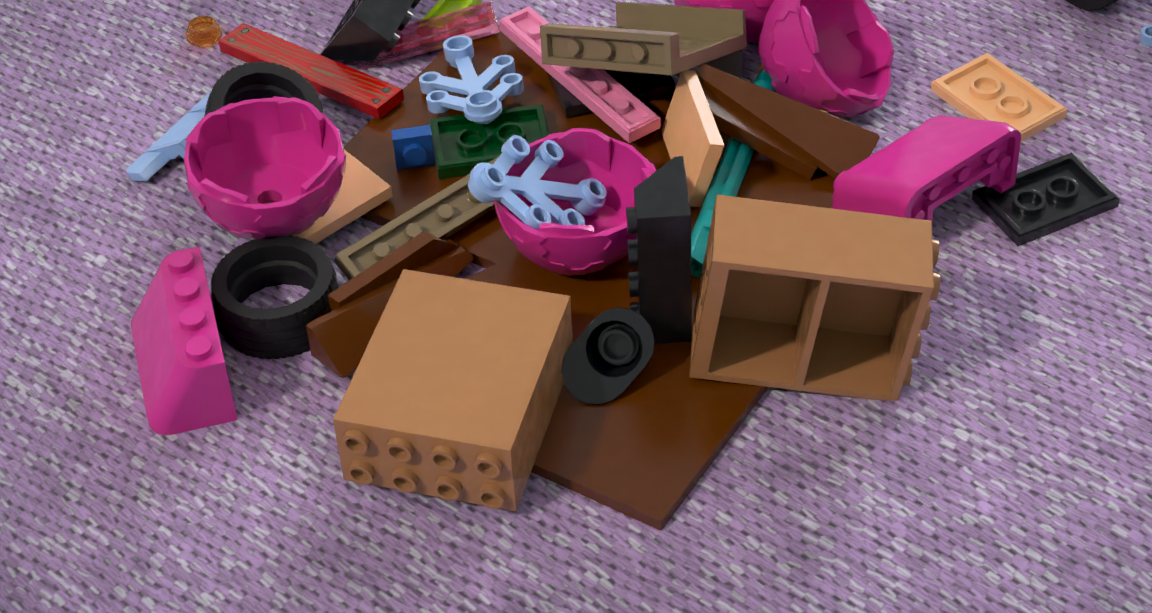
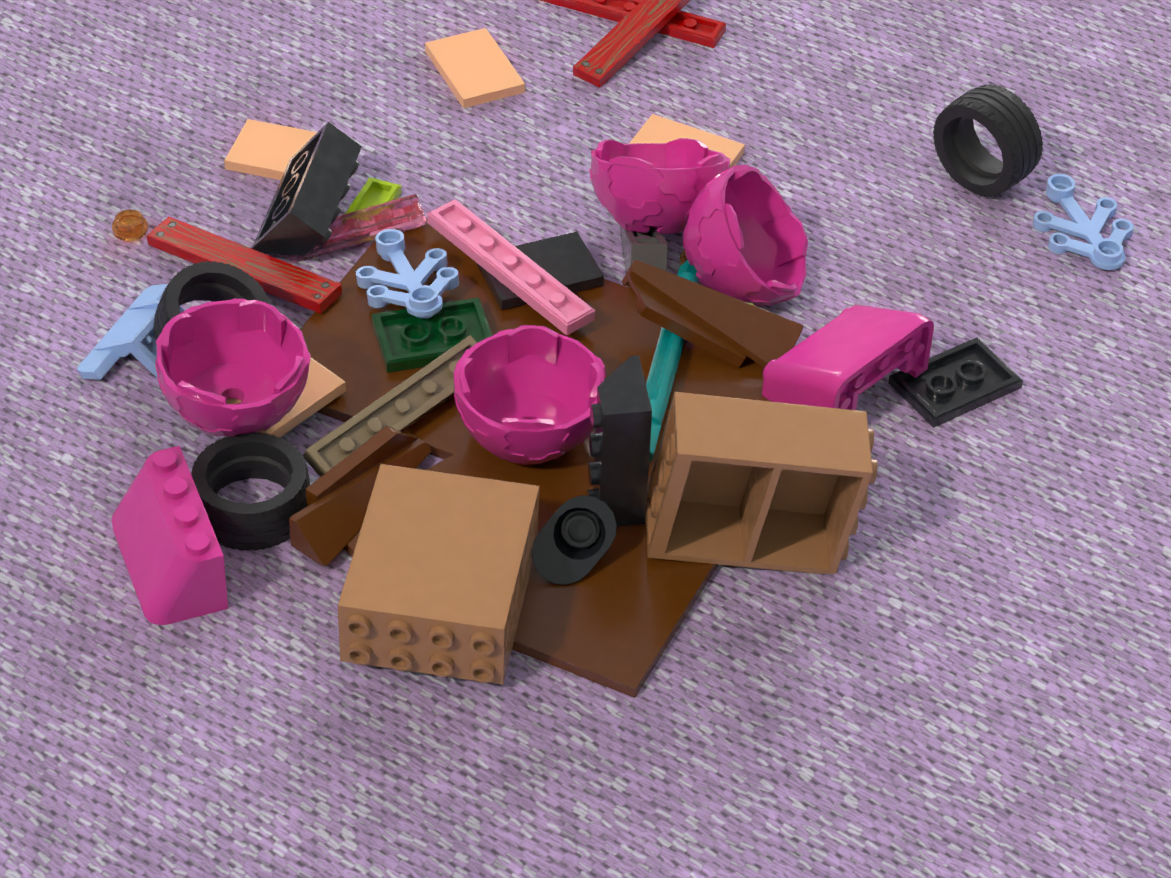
camera: 10 degrees left, 0 degrees up
(413, 147) = (361, 342): blue plate -> none
(491, 184) = (455, 382): light blue plant -> none
(647, 39) = (579, 234): dark tan panel -> none
(693, 133) = (627, 322): light nougat tile -> none
(996, 93) = (905, 283): light nougat tile -> none

